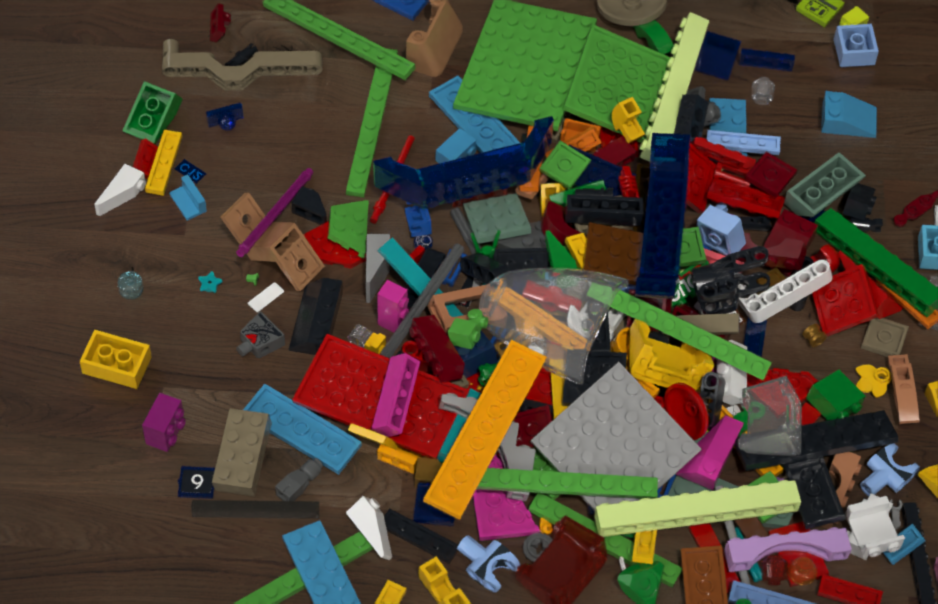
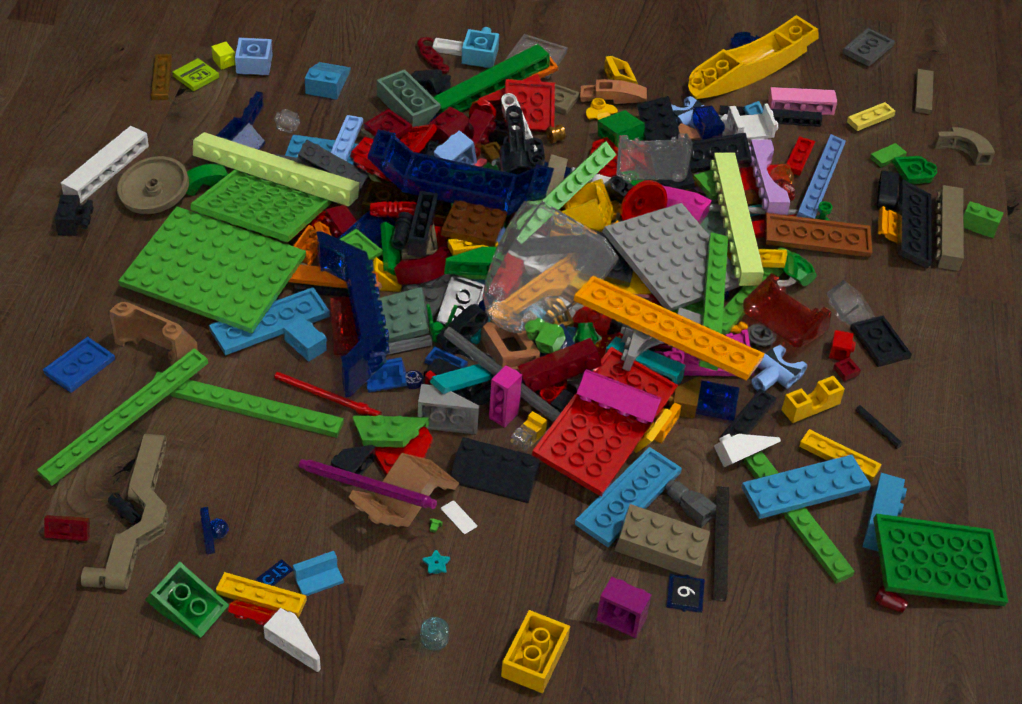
camera: 85 degrees left, 10 degrees down
(260, 337) = (515, 520): dark grey torso -> none
(624, 119) = (313, 195): yellow brick -> none
(719, 152) = (362, 148): red plate -> none
(859, 479) = (707, 122): none -> clear blue brick

